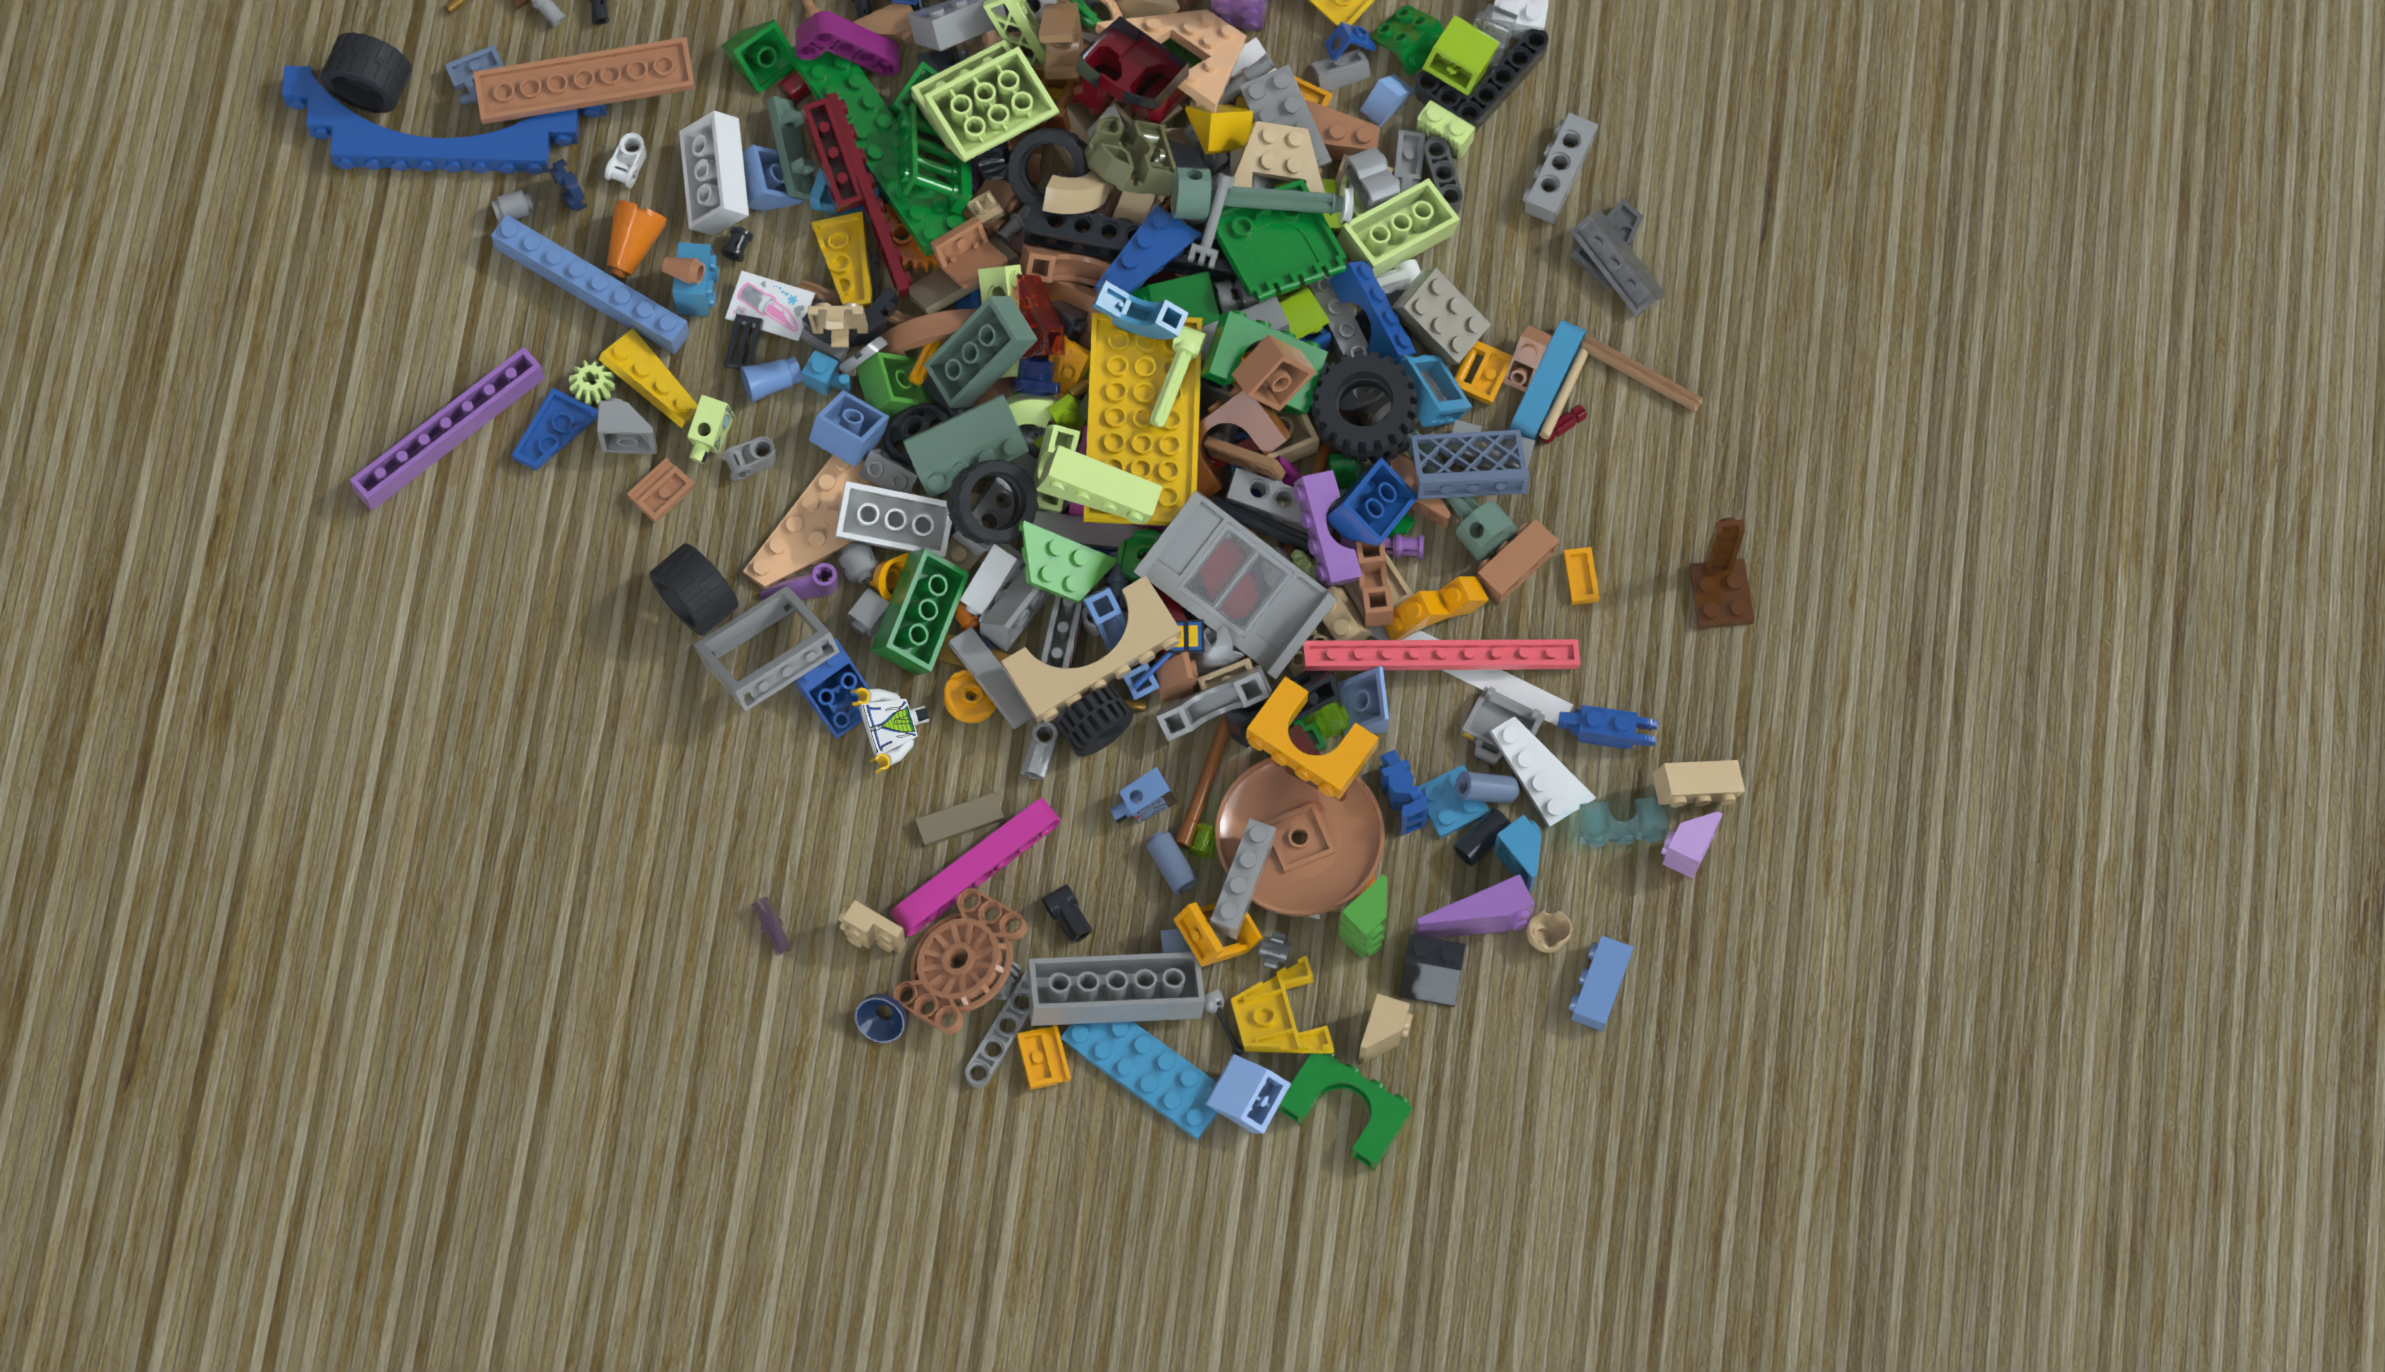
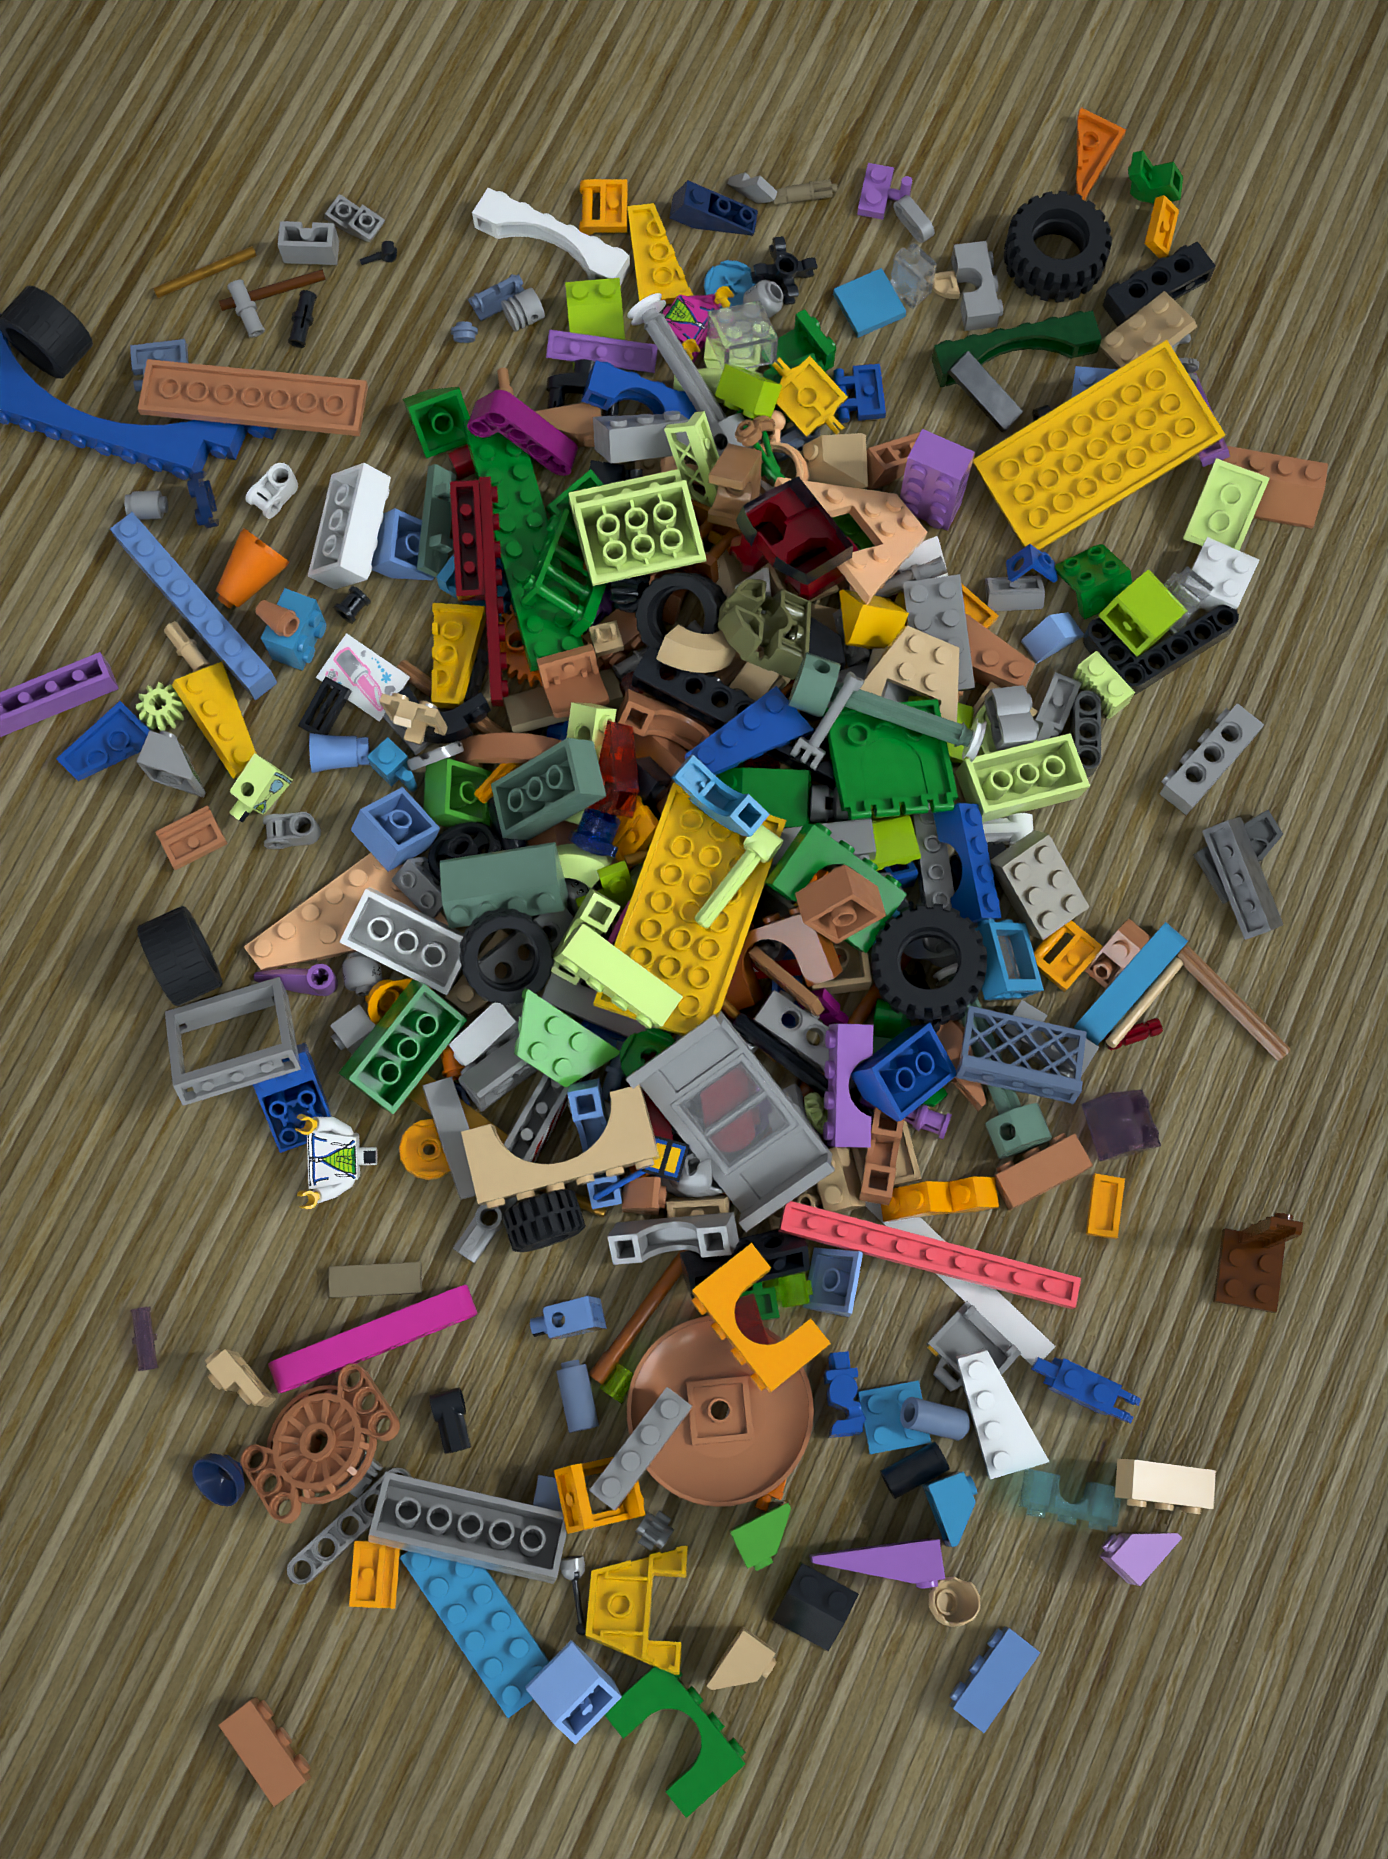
camera: 20 degrees right, 5 degrees up
(595, 323) = (185, 646): none -> tan axle
(998, 1223) = (266, 1750): none -> nougat brick
(1574, 502) = (1121, 1124): none -> clear purple slope

